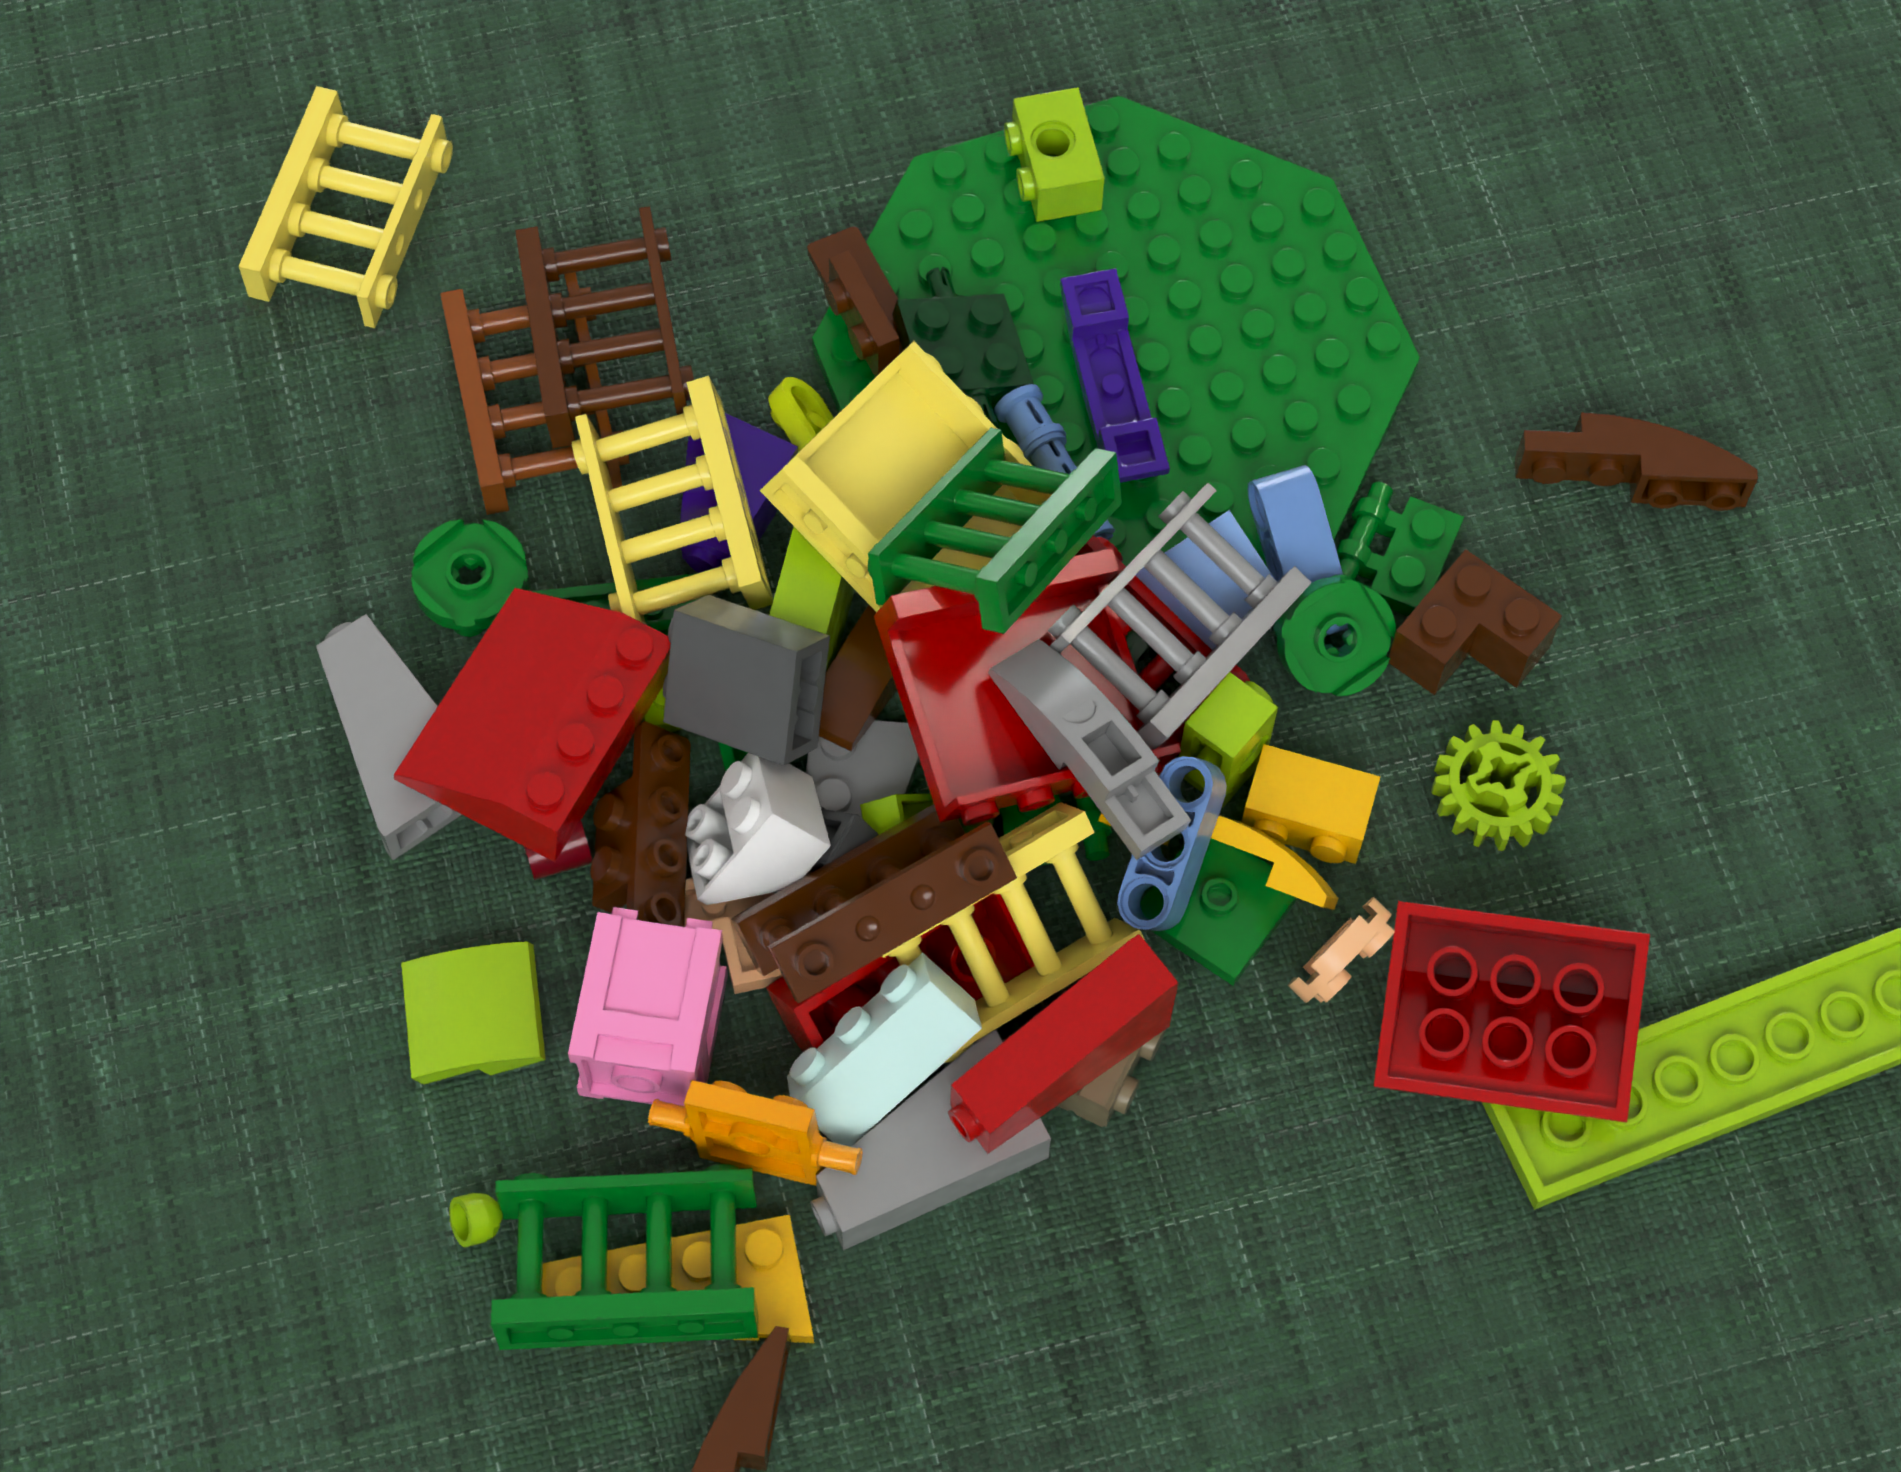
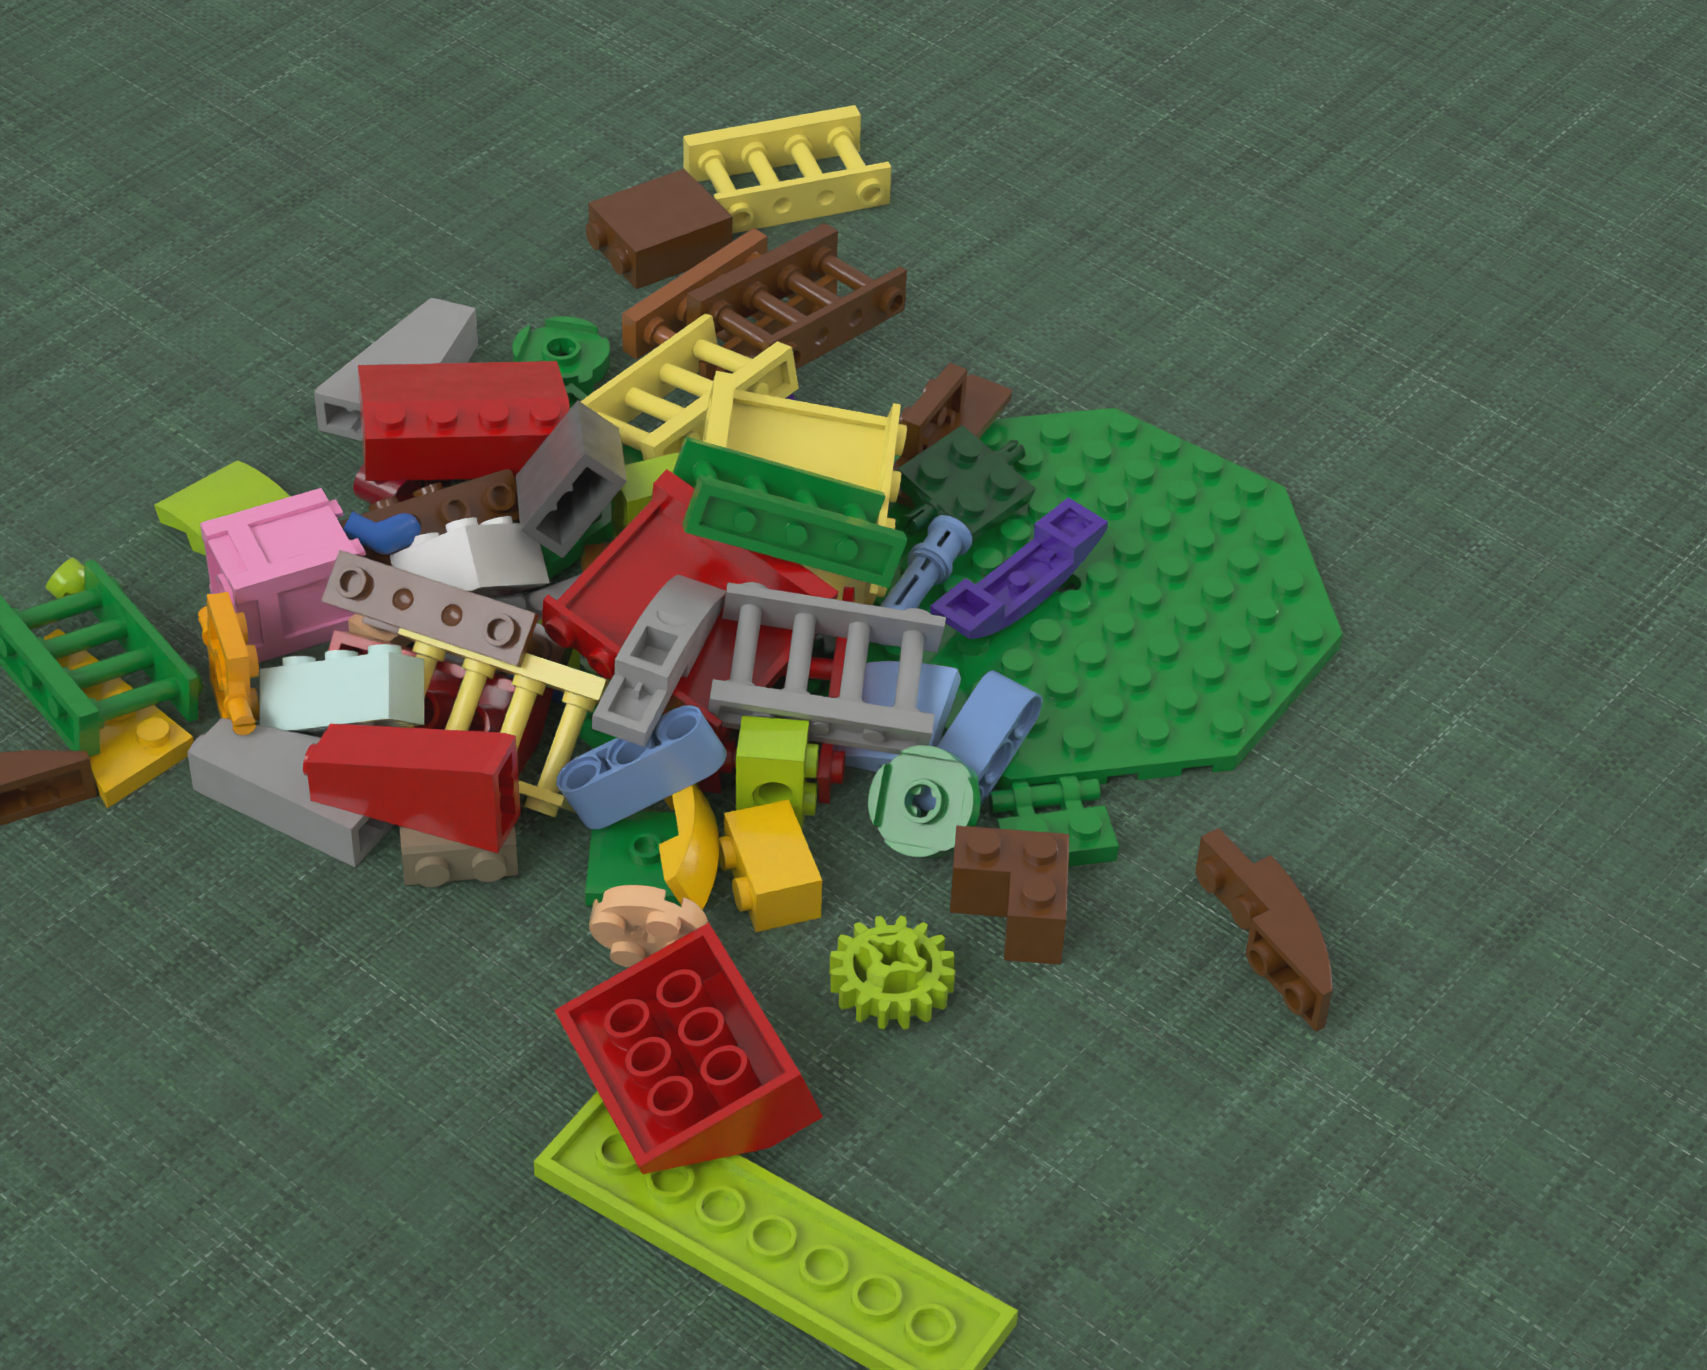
camera: 55 degrees right, 20 degrees down
(346, 373) = (658, 228): none -> reddish brown brick
(686, 891) = (384, 536): none -> blue arm
(1060, 127) = (1180, 459): lime brick -> none

